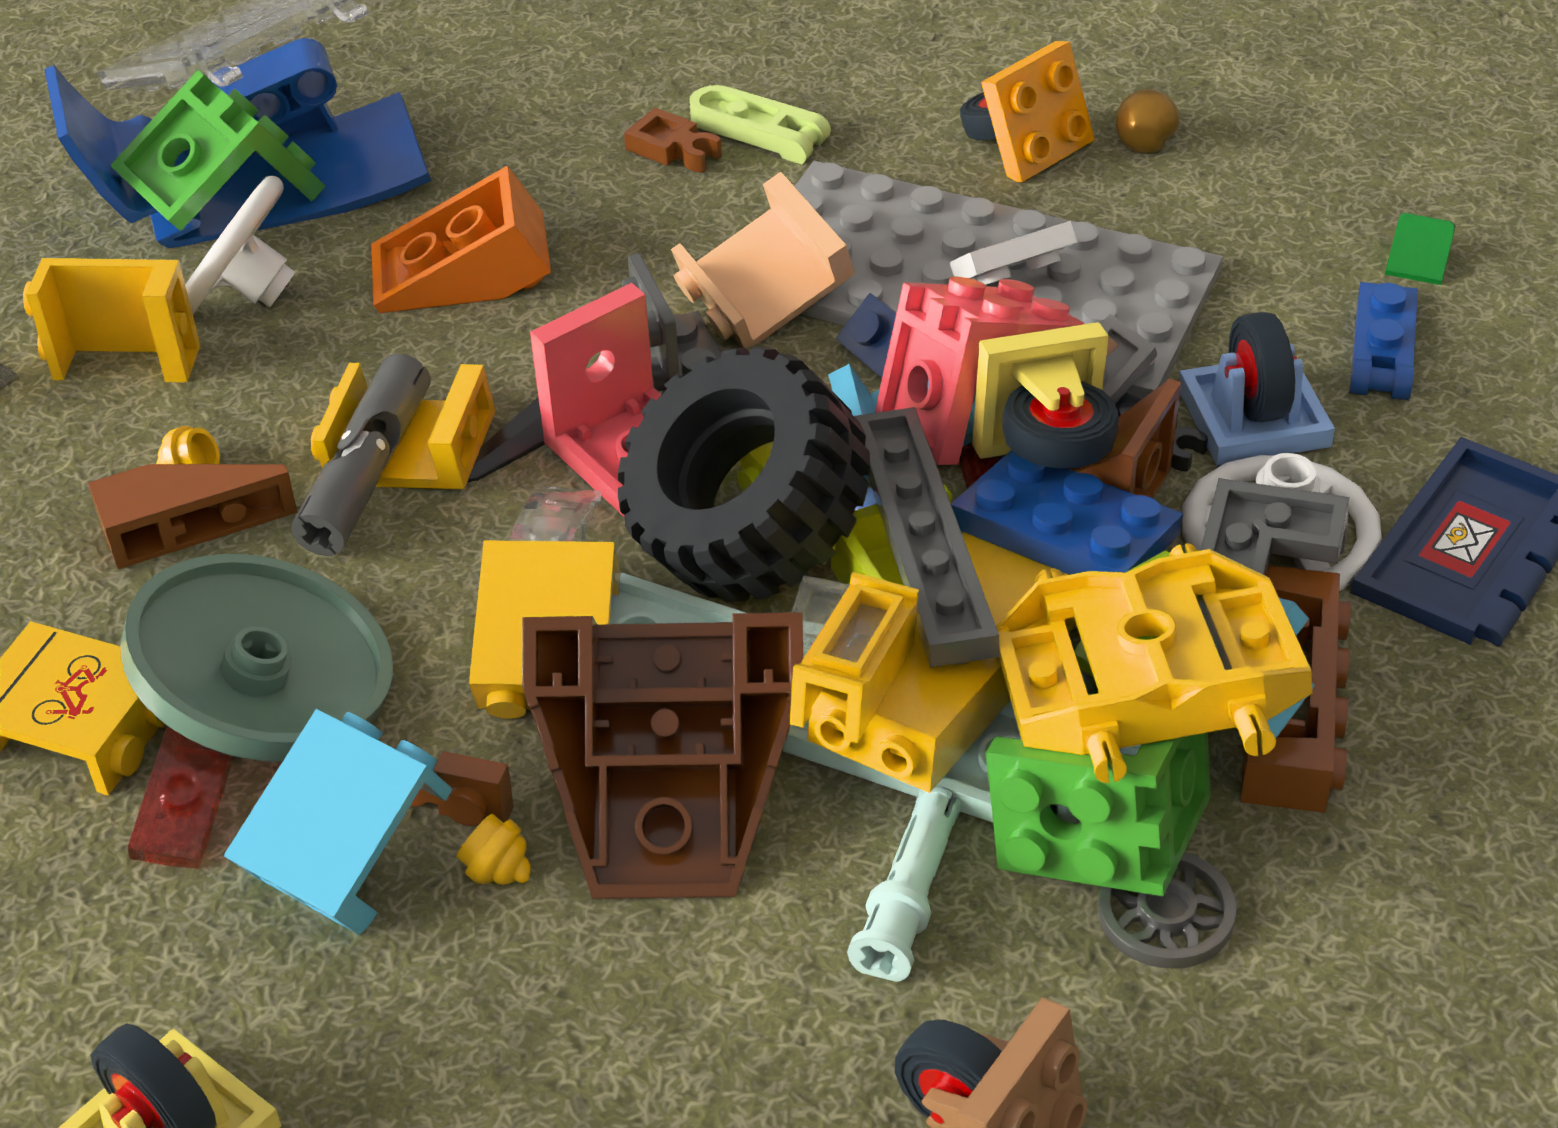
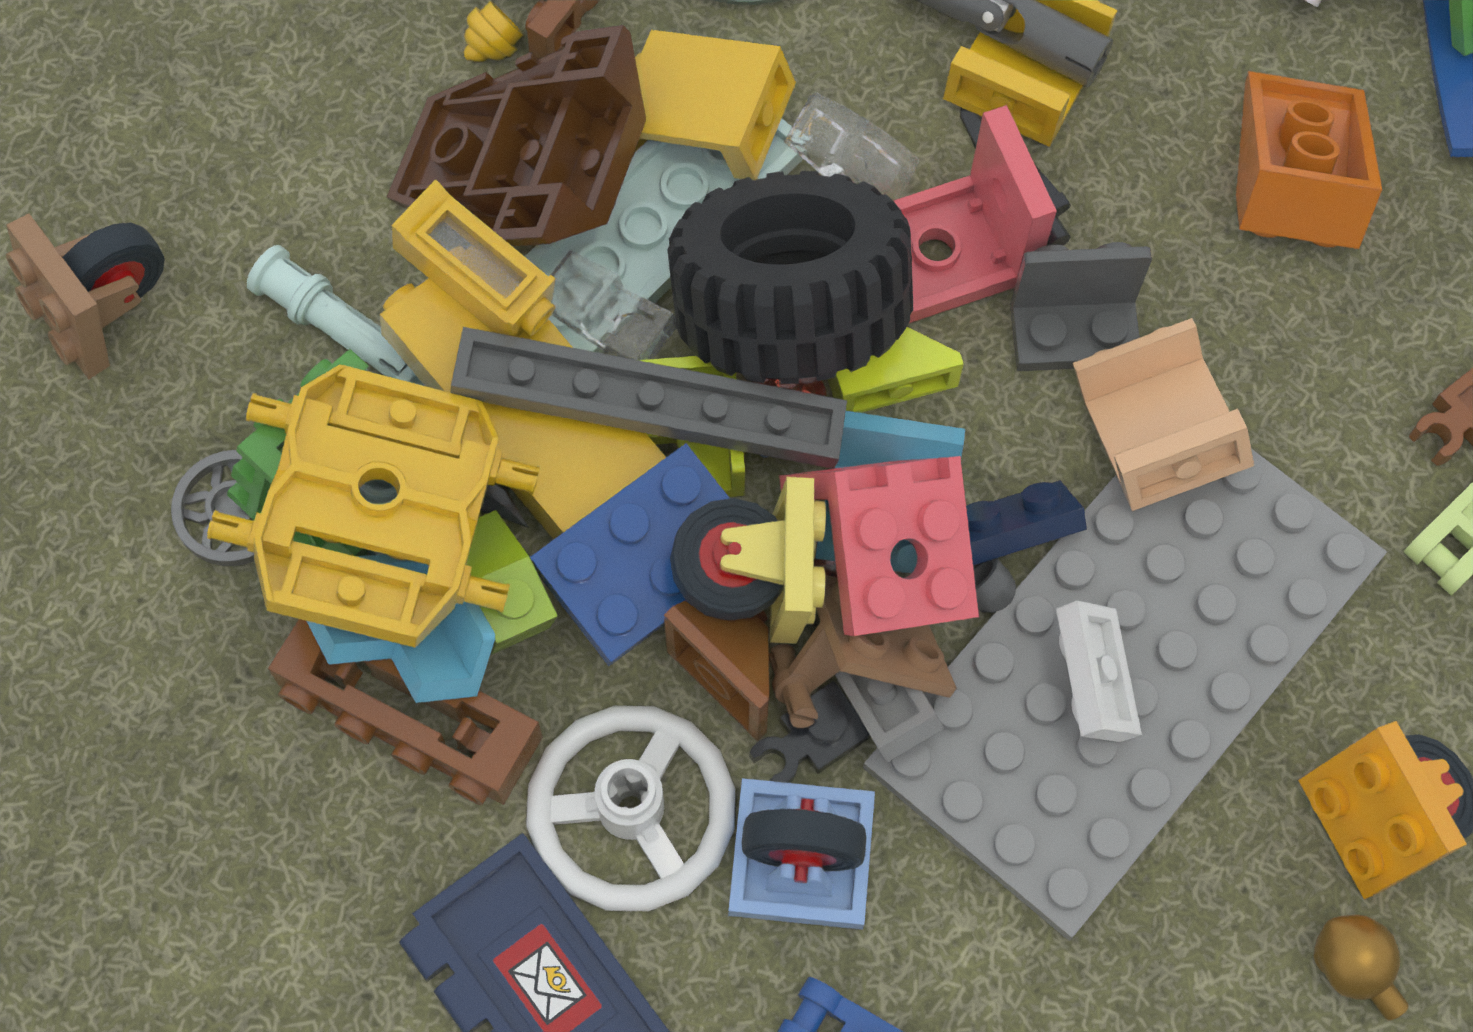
camera: 105 degrees right, 25 degrees up
(1263, 520) = (571, 734): dark grey panel -> none

